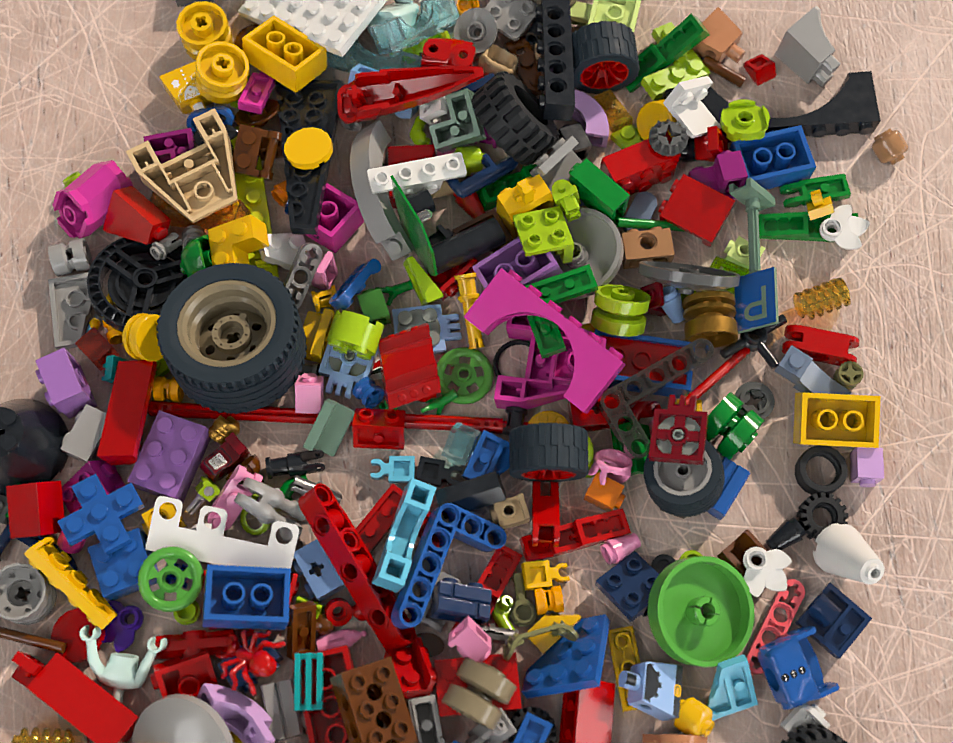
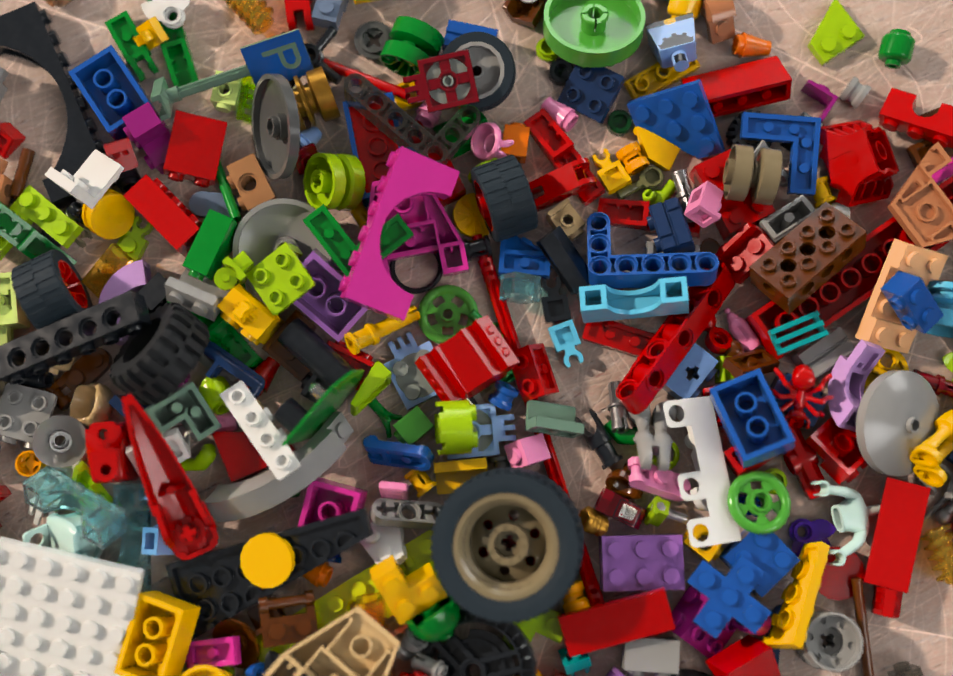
camera: 110 degrees left, 10 degrees up
(141, 337) = (539, 637): yellow head -> none
(556, 629) = (686, 165): olive piece -> none
(592, 604) = (619, 122): none -> dark green tile
(661, 144) = (142, 195): dark grey gear -> none
(756, 118) = (95, 130): lime plate -> none

